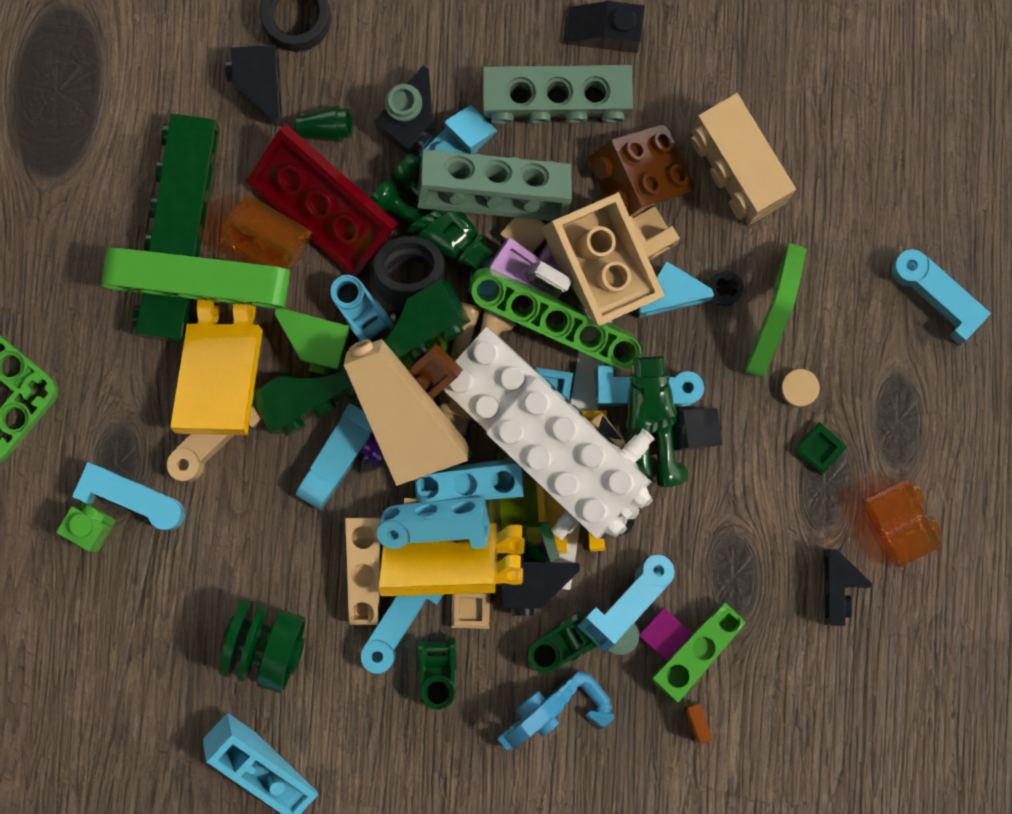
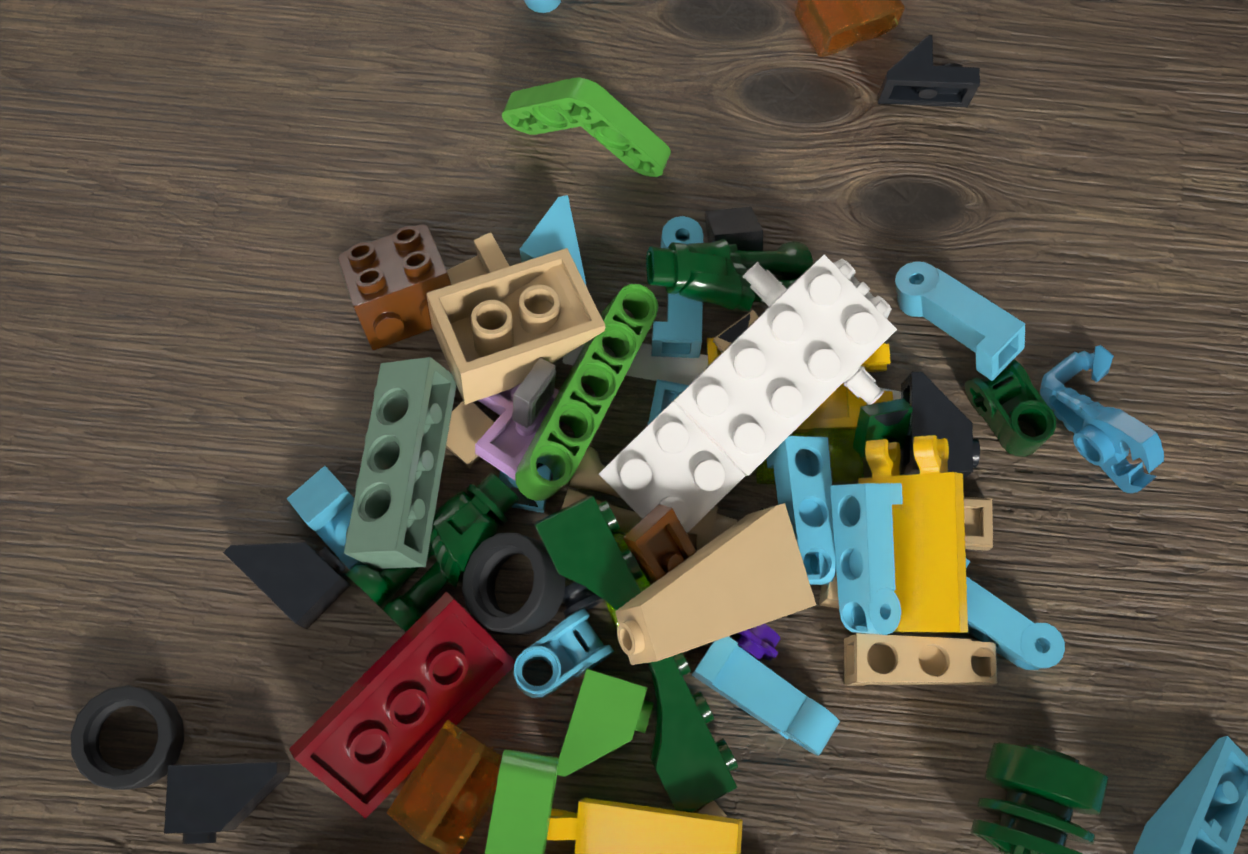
camera: 90 degrees left, 10 degrees down
(326, 124) = (293, 697): dark green cone -> none
(403, 102) = (274, 579): sand green plate -> none
(437, 668) = (1047, 565): dark green piece -> none
(606, 26) = (199, 315): black slope -> none
(612, 80) = (275, 310): sand green brick -> none
(665, 634) = (992, 279): magenta tile -> none
(697, 653) = (1015, 242): bright green leg -> none
(698, 723) = (1100, 246): dark orange tile -> none
(725, 277) = (550, 178): black bush -> none
(741, 160) = (395, 151): tan brick -> none
(800, 388) = (682, 115): tan tile -> none
(820, 448) = (756, 97): dark green tile -> none

